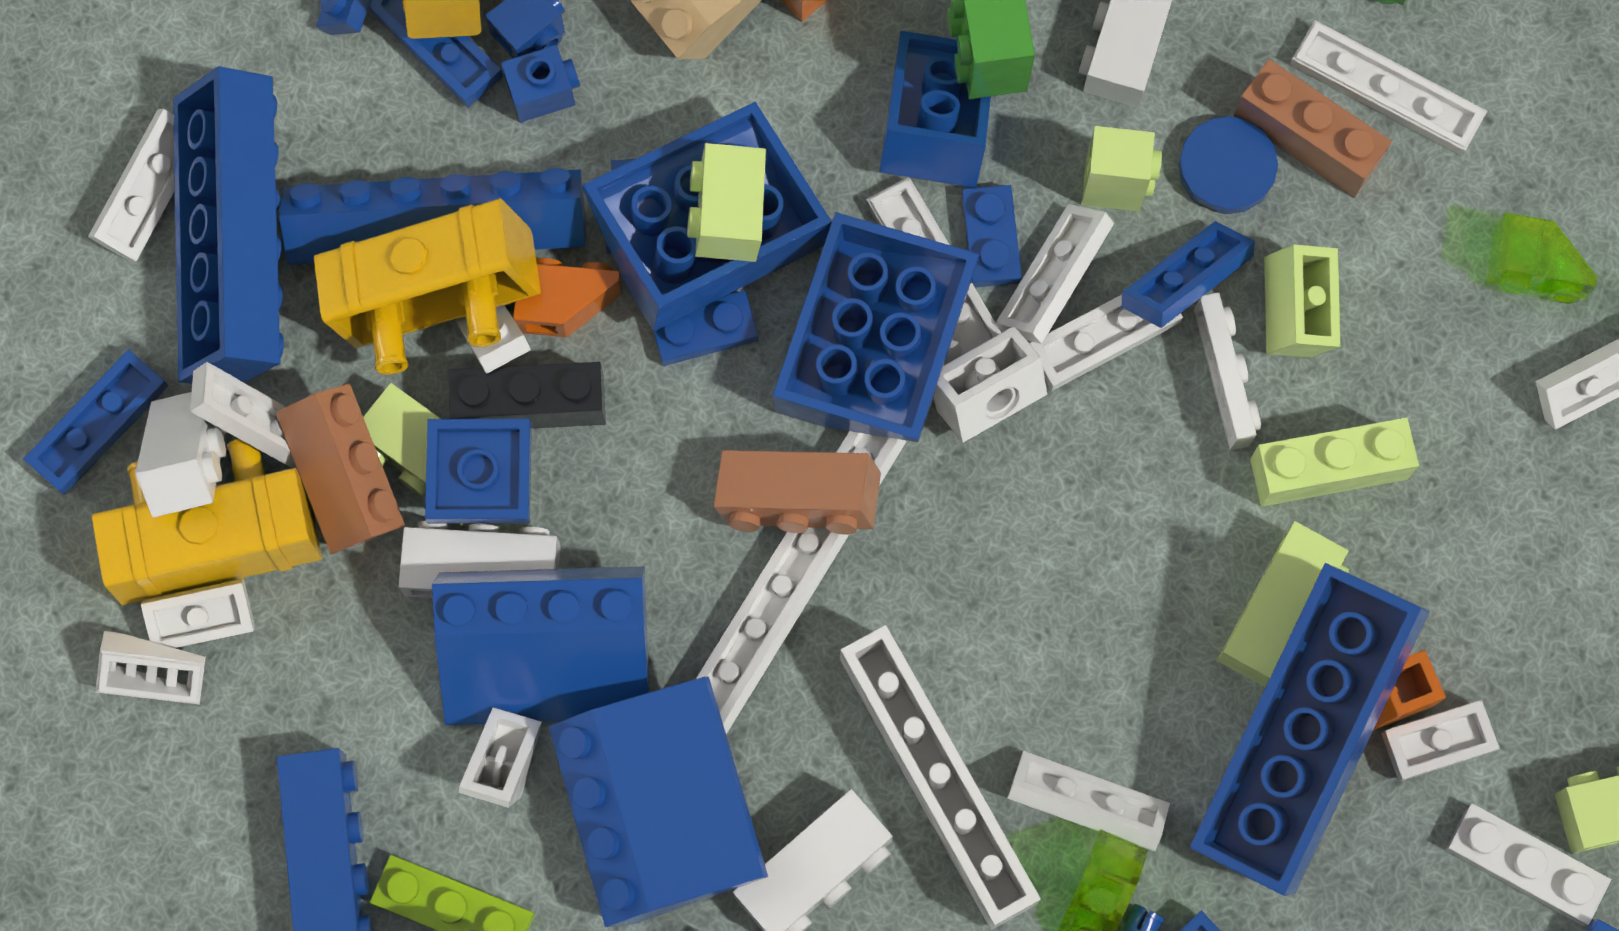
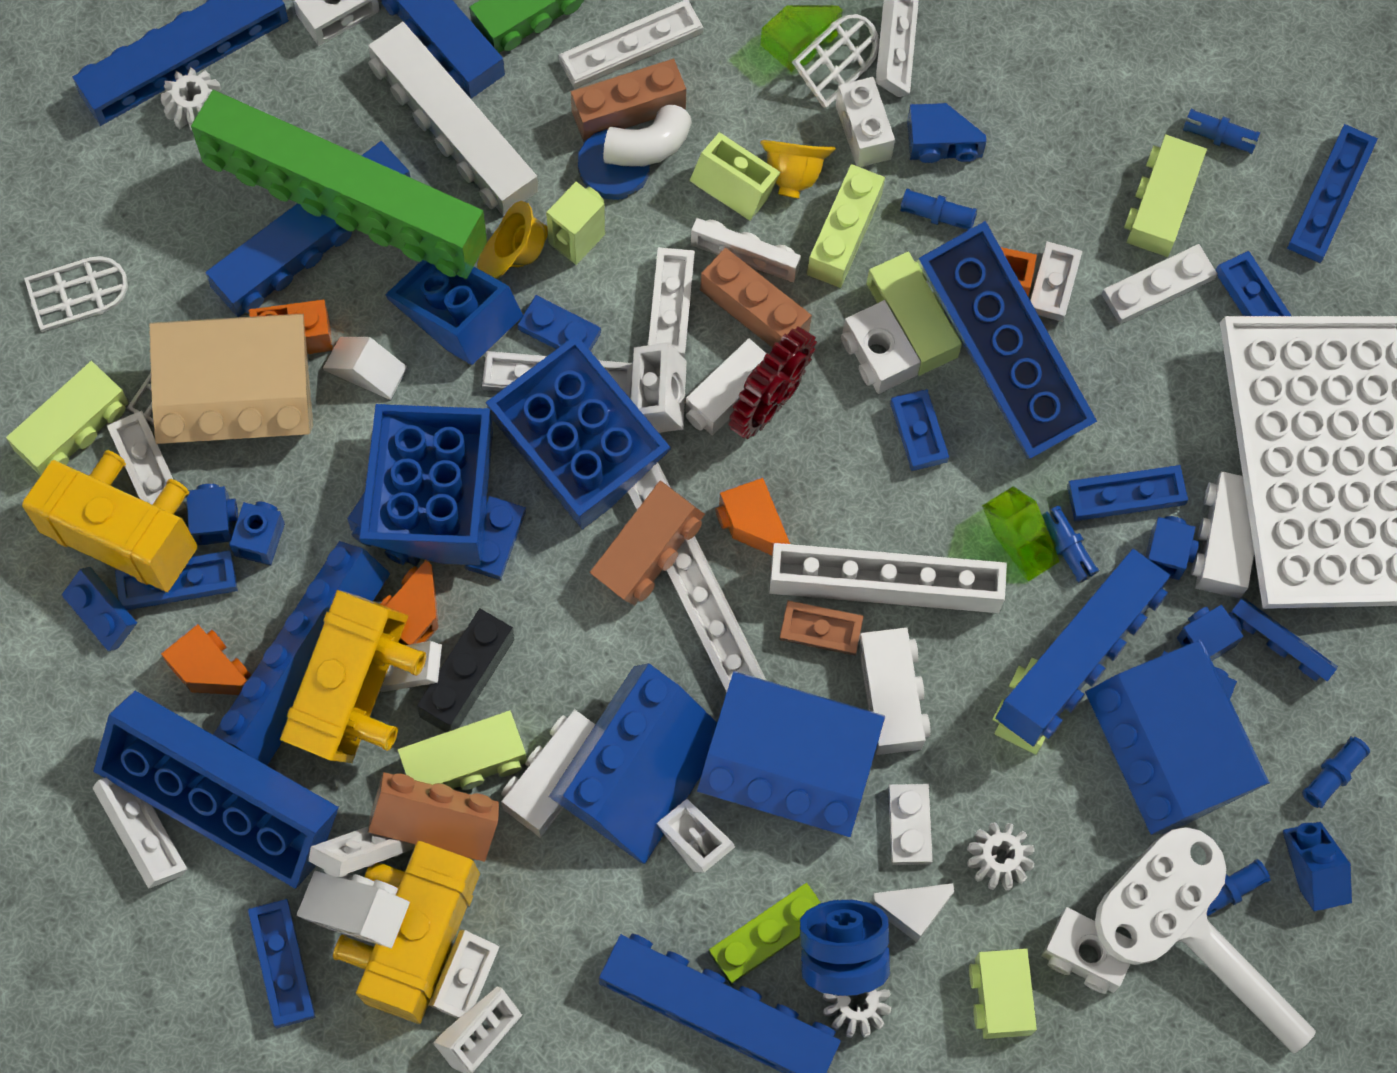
camera: 60 degrees left, 5 degrees down
(360, 126) = (202, 664): none -> orange slope
(478, 471) = (500, 727): blue plate -> none
(729, 202) = (439, 456): yellowish green brick -> none
(805, 67) = (366, 365): none -> white slope
(836, 742) = (821, 628): none -> nougat plate
(912, 583) = (751, 516): none -> orange slope
(1047, 460) = (714, 398): none -> white brick
(1052, 122) = (514, 242): none -> yellow piece
(1055, 272) = (612, 305): white plate -> none
(1072, 500) = (772, 382): none -> dark red gear
(1089, 800) = (958, 502): white plate -> none
(1146, 702) = (919, 430): none -> blue plate
(1168, 422) = (752, 298): none -> nougat brick
(1187, 274) = (672, 228): blue plate -> none
(1234, 572) = (880, 327): none -> white brick
(1272, 185) = (648, 144): none -> white cylinder
(1368, 358) = (797, 165): none -> yellow hat
(1432, 553) = (938, 210): none -> blue pin
(1478, 401) = (865, 122): none -> white brick
(1521, 328) = (834, 75): none -> white window
(1529, 495) = (942, 133): none -> blue slope

